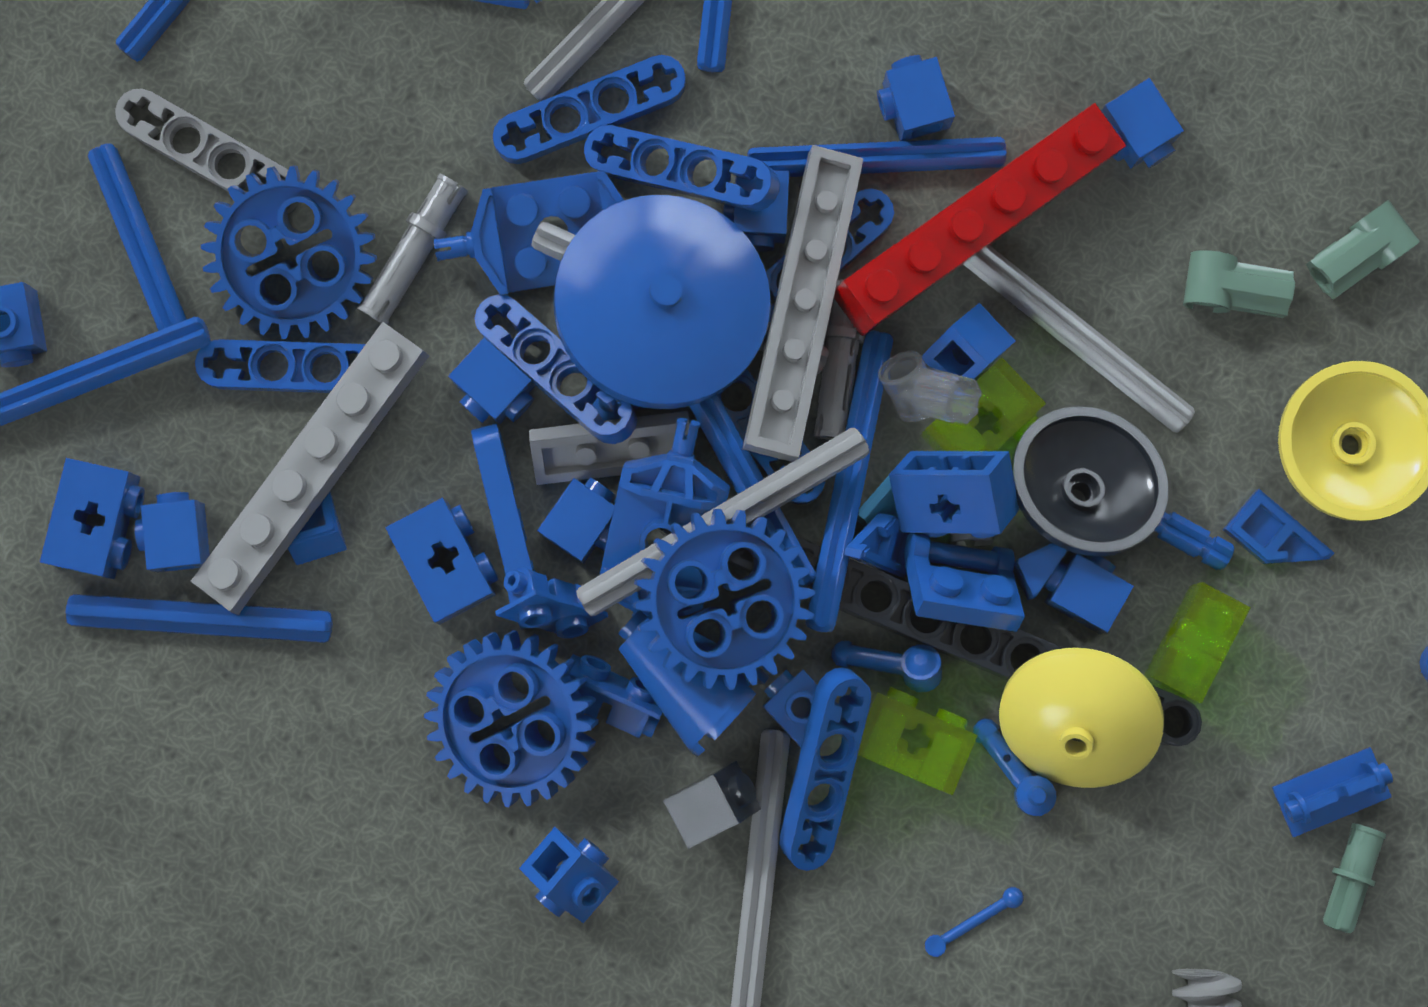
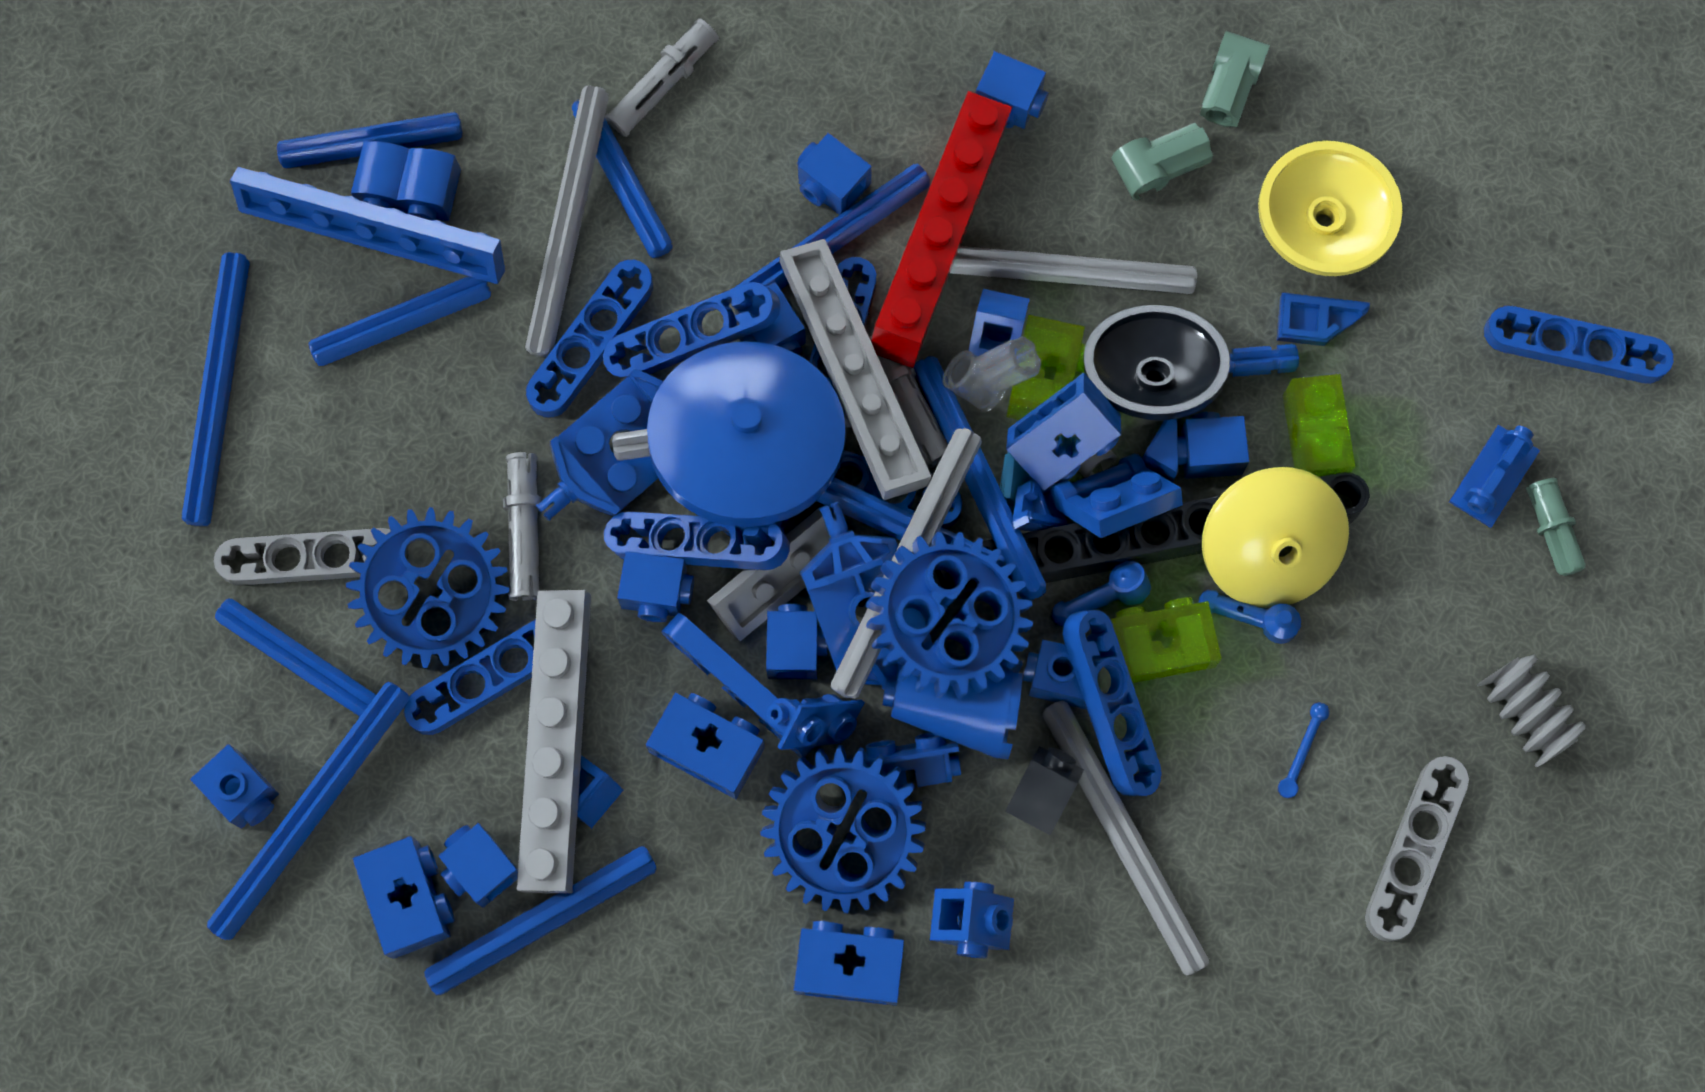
camera: 30 degrees left, 10 degrees down
(406, 836) = (870, 984): none -> blue brick

